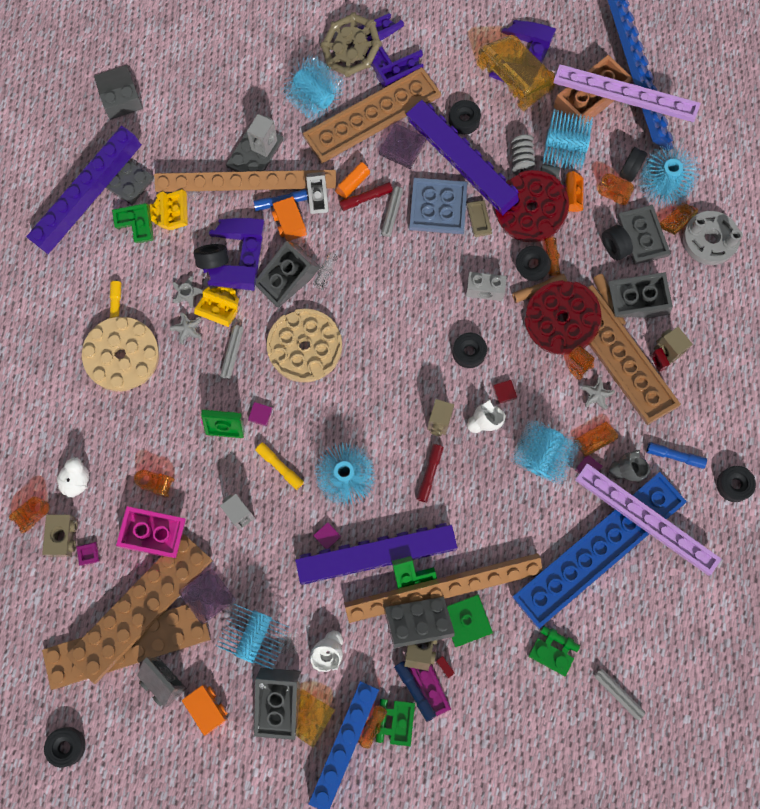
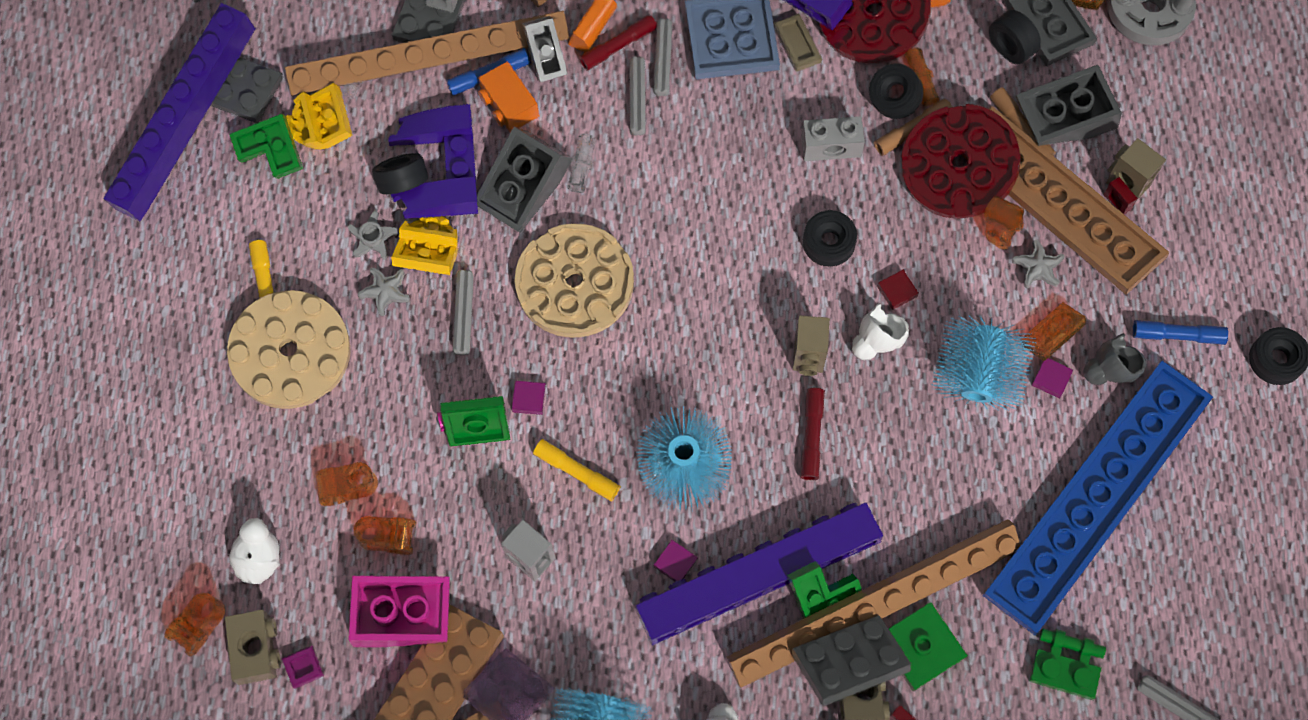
camera: 10 degrees left, 5 degrees down
(134, 445) = (341, 484): none -> clear orange piece
(370, 234) = (637, 96): none -> light grey axle
(648, 520) = (1163, 434): lavender plate -> none

